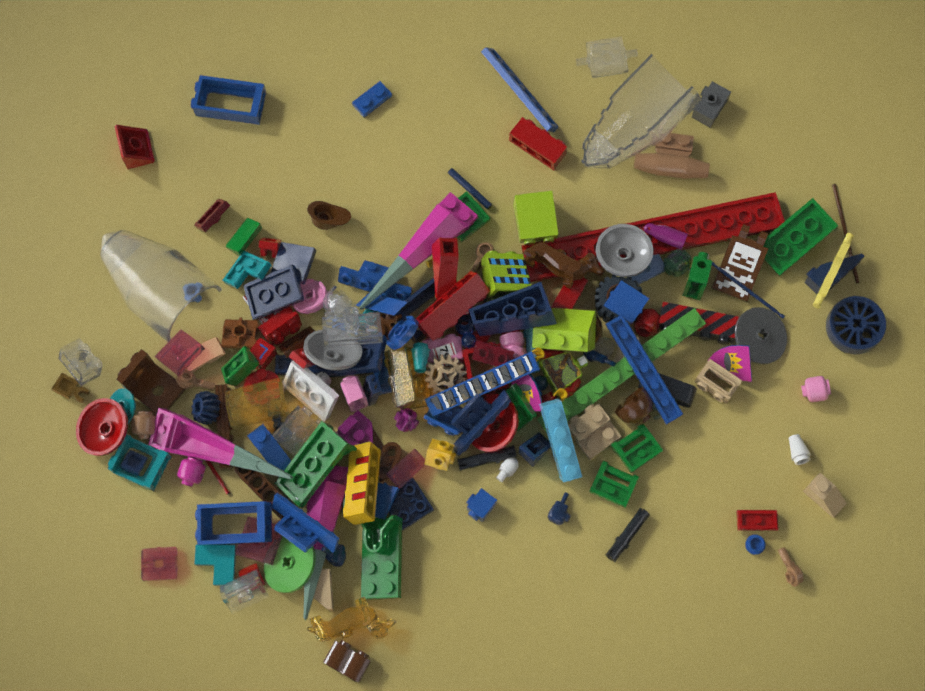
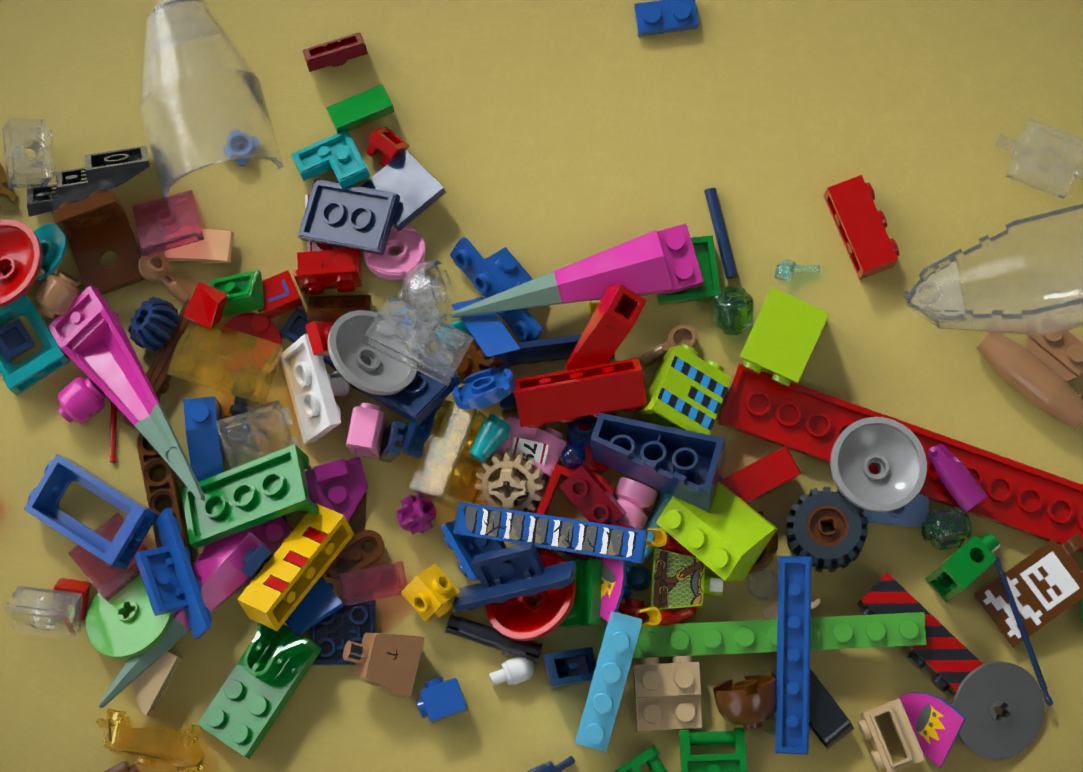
camera: 30 degrees right, 5 degrees up
(125, 349) = (100, 172): none -> black slope
(220, 557) = (47, 548): teal tile -> none
(228, 380) = (206, 305): none -> red slope
(231, 327) = (266, 261): dark orange piece -> none
(327, 215) = (493, 150): reddish brown piece -> none
(338, 493) = (255, 560): none -> dark blue plate
(338, 557) = (201, 648): dark blue piece -> none
(440, 503) = (386, 661): none -> medium nougat torso
(501, 221) = (733, 310): none -> clear green head
(514, 184) = (787, 267): none -> clear light blue hand
(519, 89) = (886, 131): tile -> none
(561, 264) = (774, 427): reddish brown animal -> none
(594, 355) = (740, 589): hand -> none
(626, 301) = (831, 542): blue piece -> none
(647, 322) = (846, 587): red head -> none

